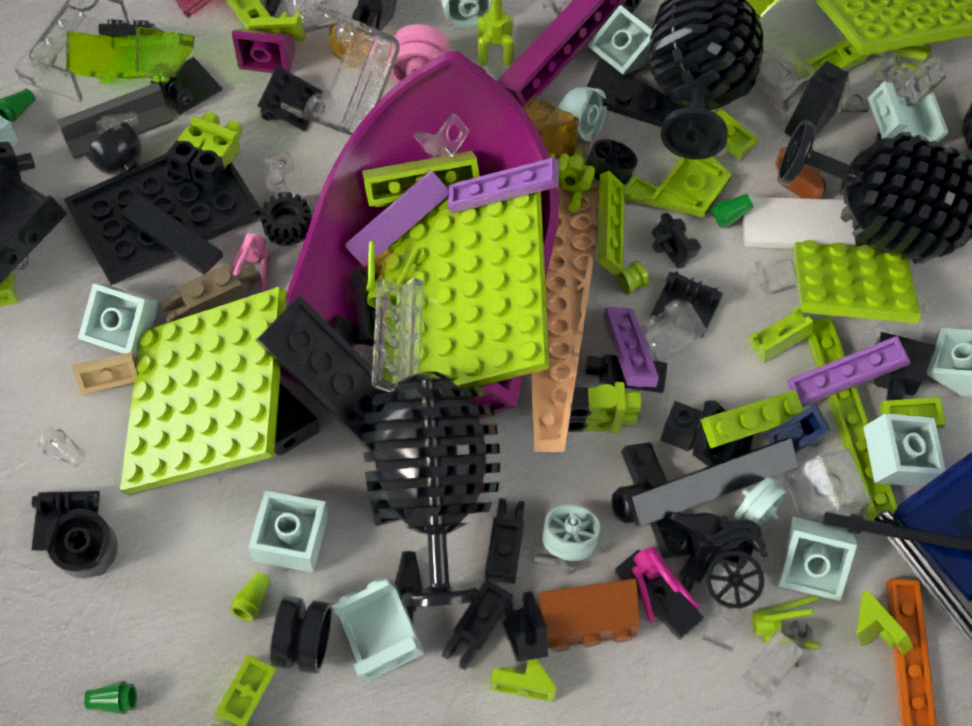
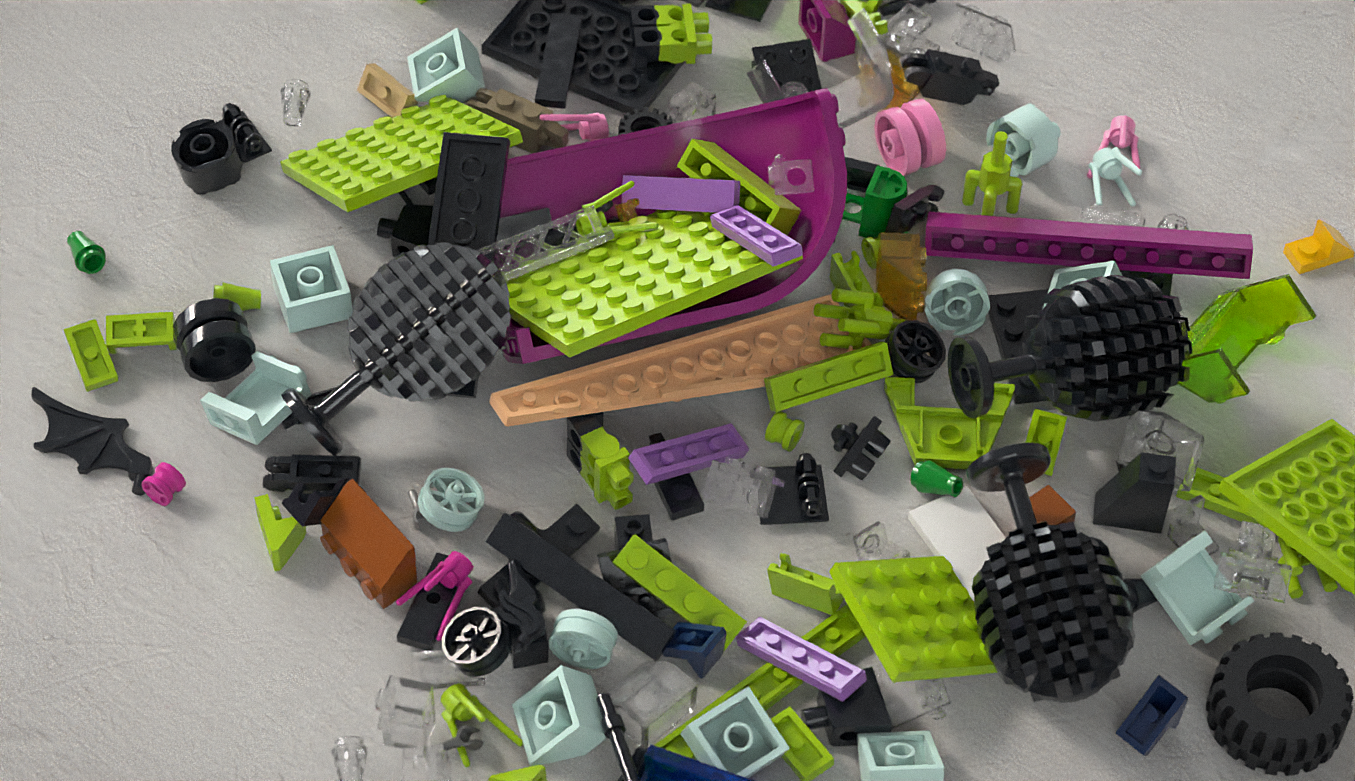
camera: 60 degrees right, 10 degrees down
(505, 544) = (413, 457): black hinge -> none

